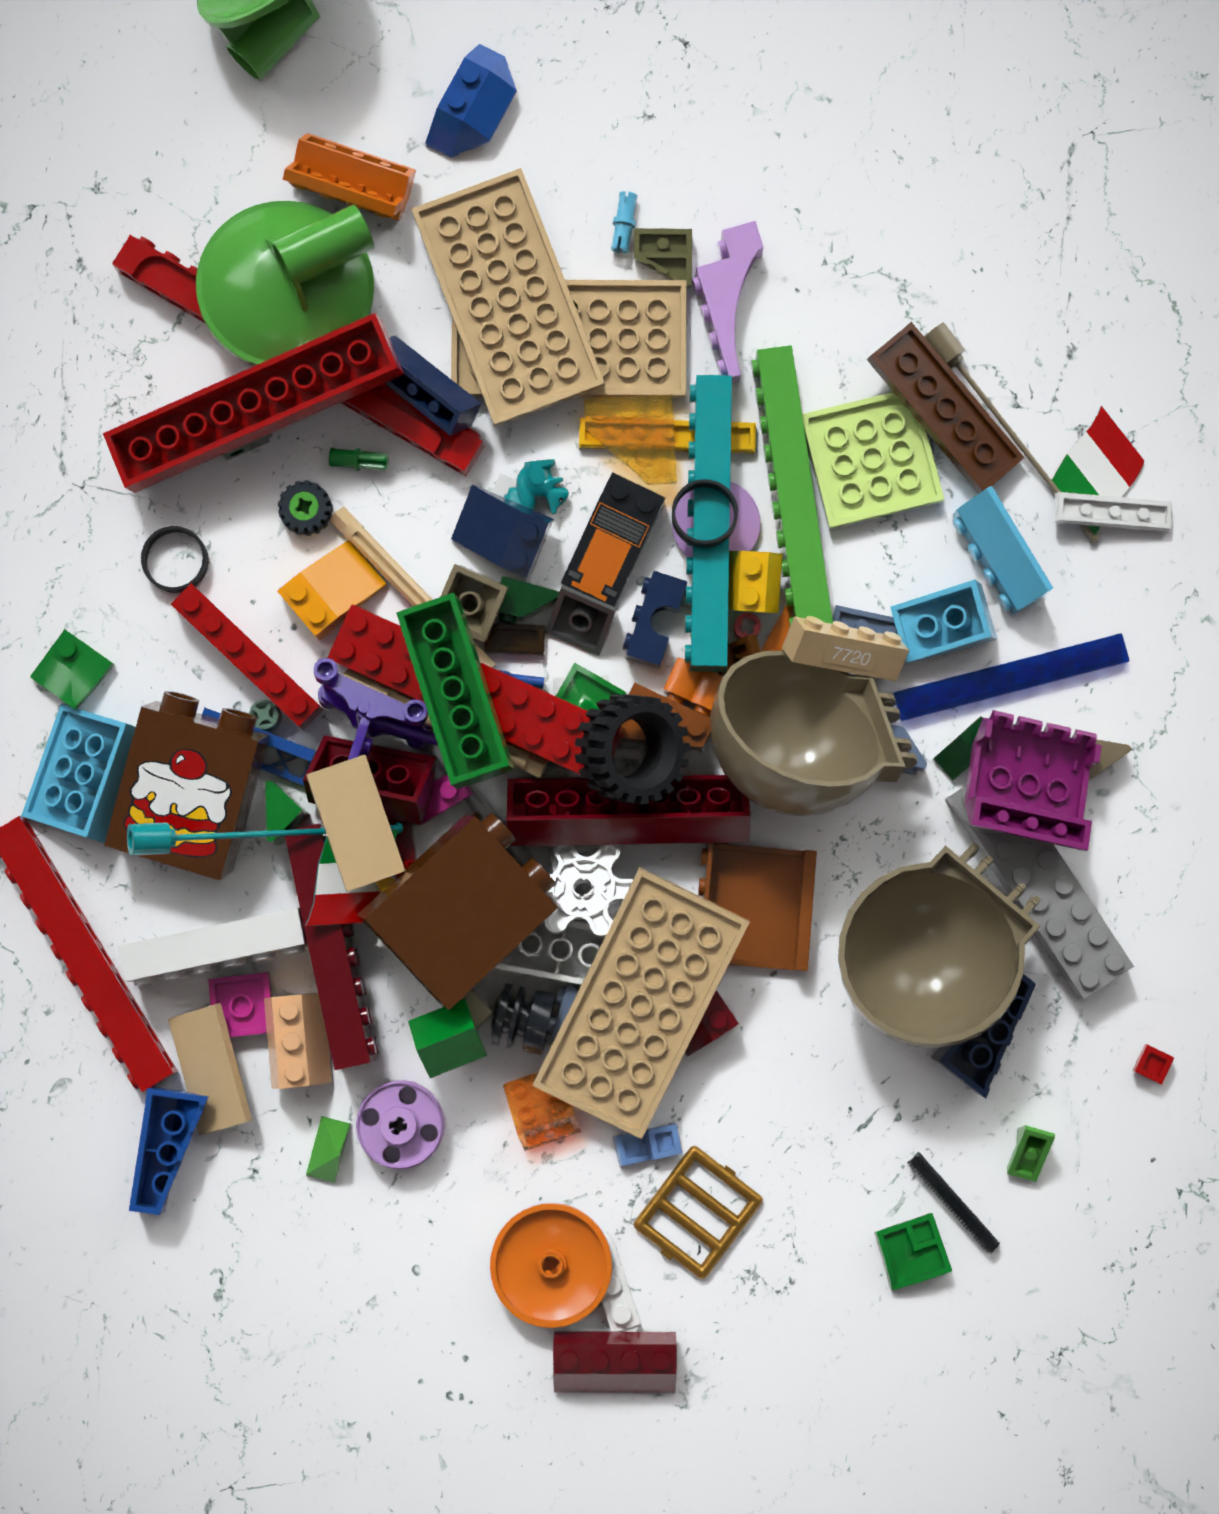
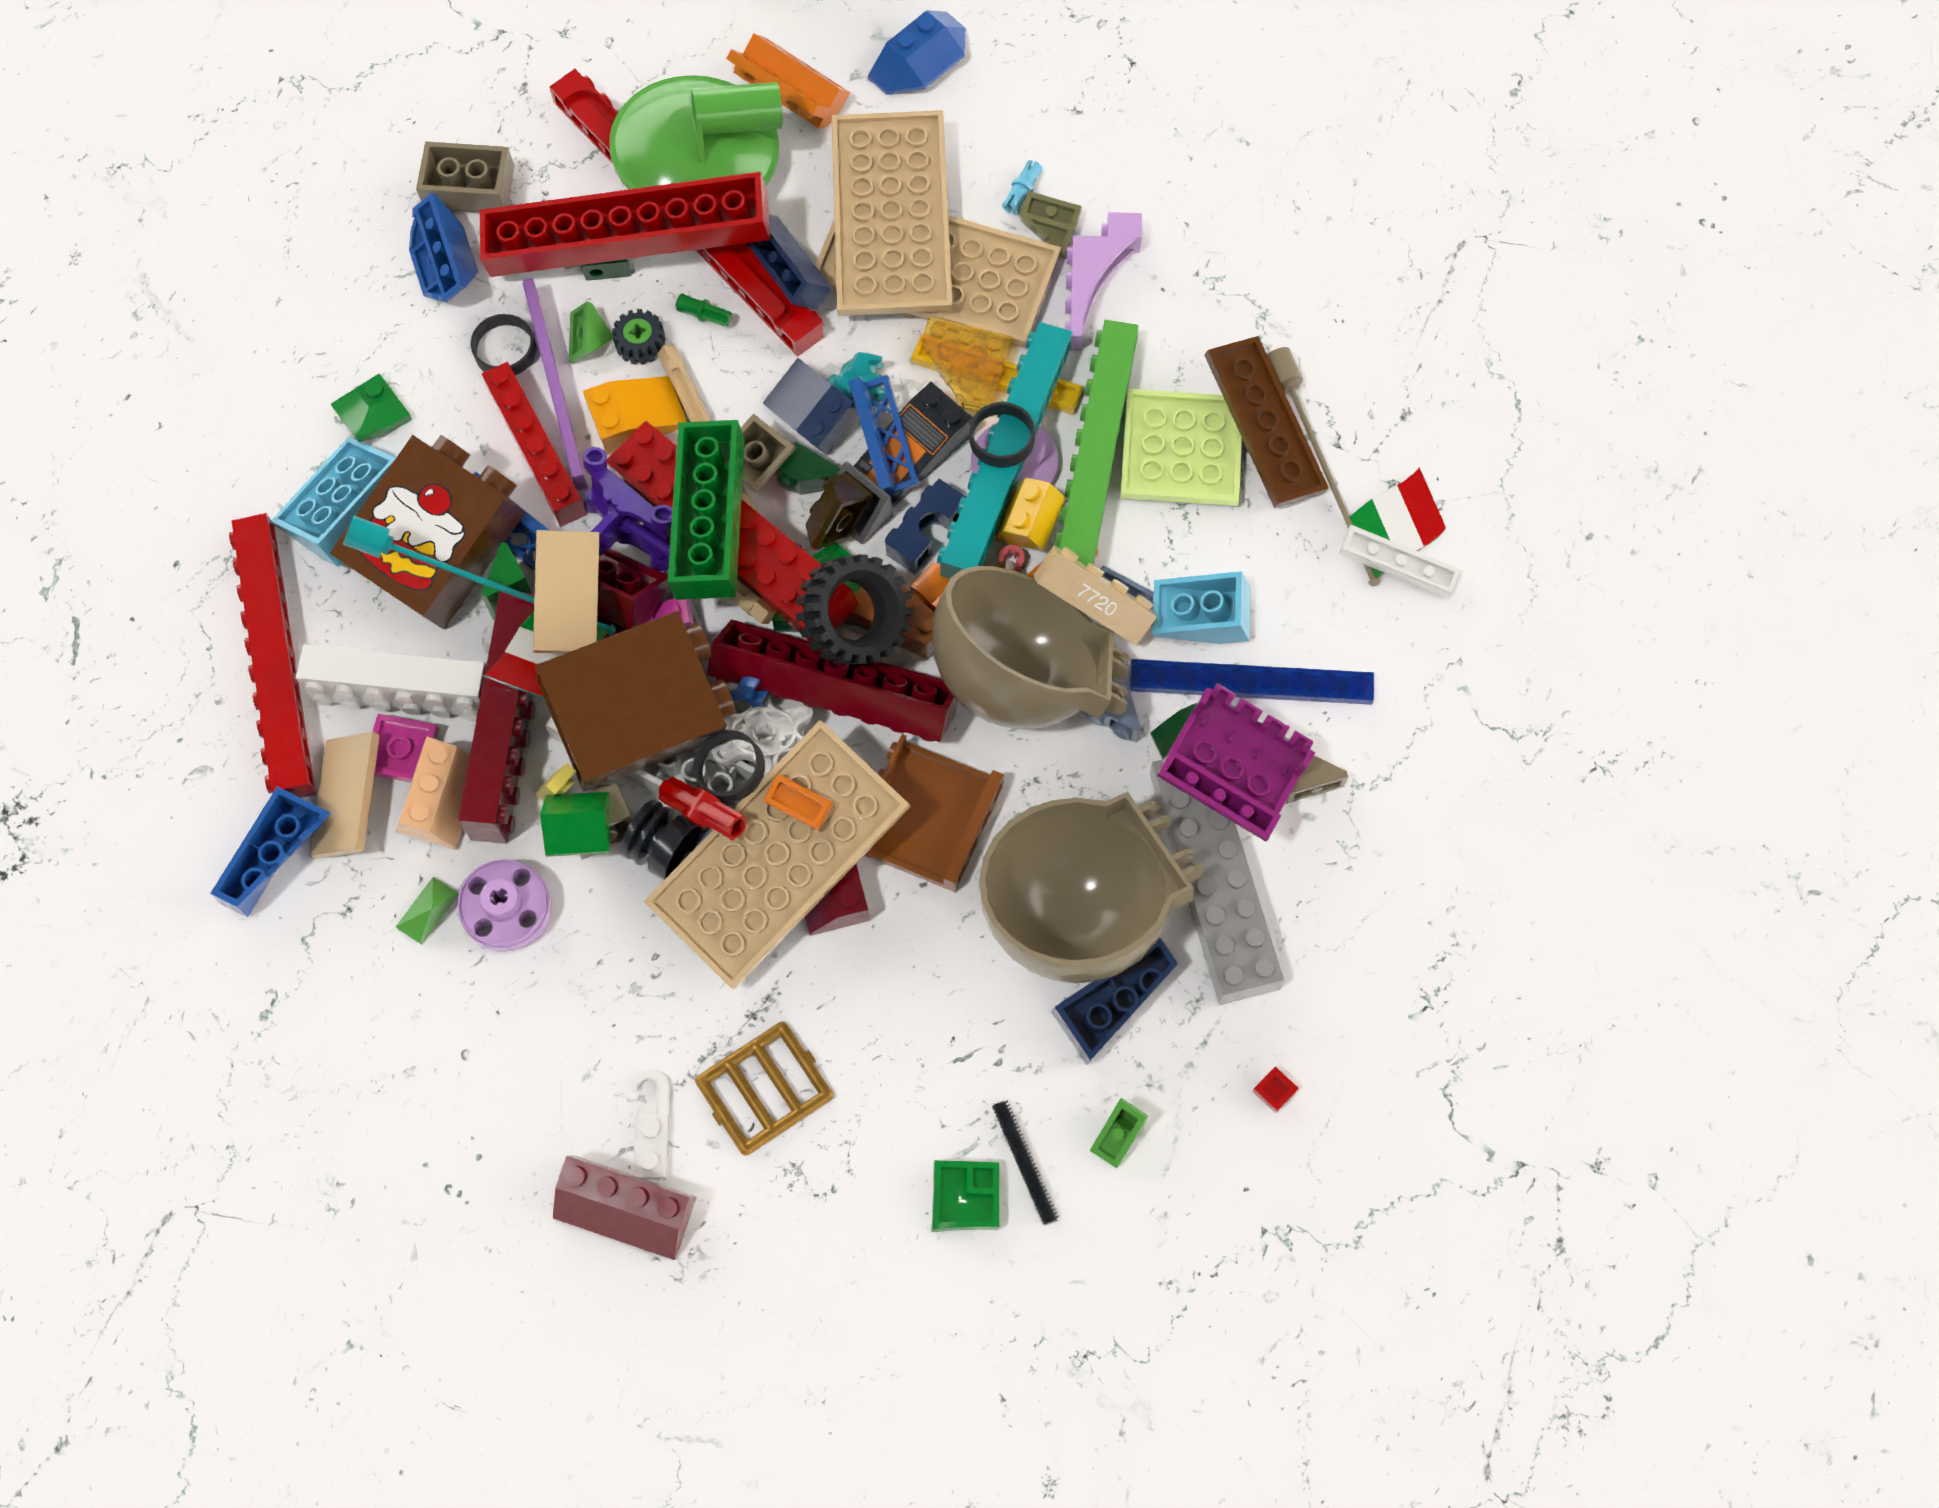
camera: 20 degrees right, 15 degrees down
(66, 391) = (466, 175): none -> dark tan brick
(75, 482) = (440, 250): none -> blue wedge
(241, 585) = (554, 384): none -> medium lavender tile
(251, 520) = (586, 332): none -> bright green slope
(261, 711) = (530, 494): sand green wheel -> none
(408, 1000) = (557, 783): none -> light yellow plate
(516, 639) = (784, 505): dark brown tile -> none
(538, 1115) = (643, 941): clear orange bracket -> none
(551, 1265) = (596, 1085): orange dish -> none
(552, 849) = (746, 692): none -> blue bar
(558, 986) = (702, 808): none -> red piece
(567, 638) = (836, 511): none -> dark brown slope
(577, 548) = (873, 436): none -> blue fence
(599, 943) = (714, 740): none -> black tyre
(646, 953) = (798, 802): none -> orange tile
(655, 1144) = (738, 1006): medium blue slope -> none
(1001, 551) = (1278, 561): medium azure slope -> none

